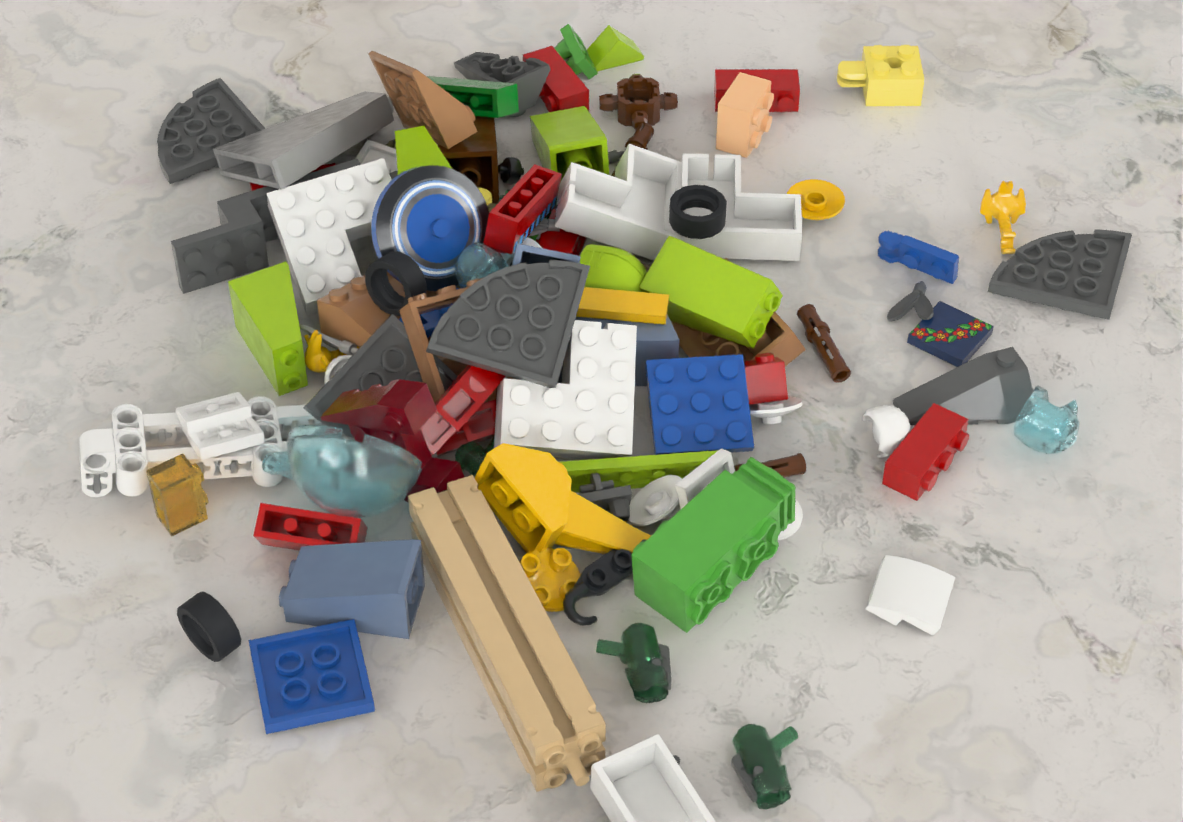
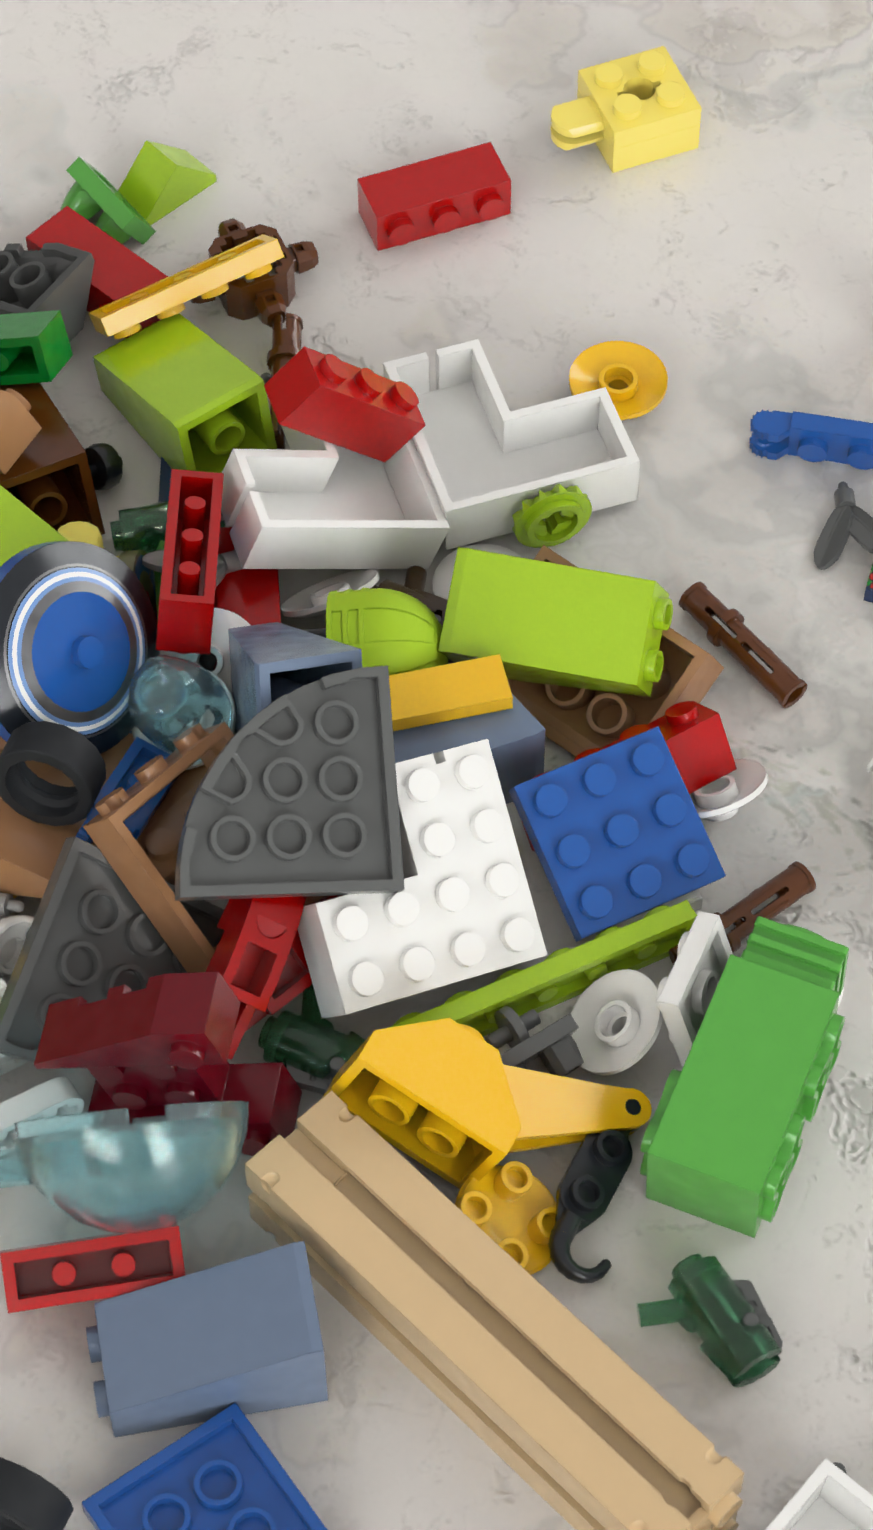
camera: 20 degrees left, 10 degrees up
(607, 93) = (169, 294): none -> yellow plate
(644, 159) = (344, 404): none -> red brick
(697, 226) = (467, 443): black tyre -> none
(744, 115) = (444, 255): light nougat brick -> none
(752, 258) = (564, 513): none -> lime gear

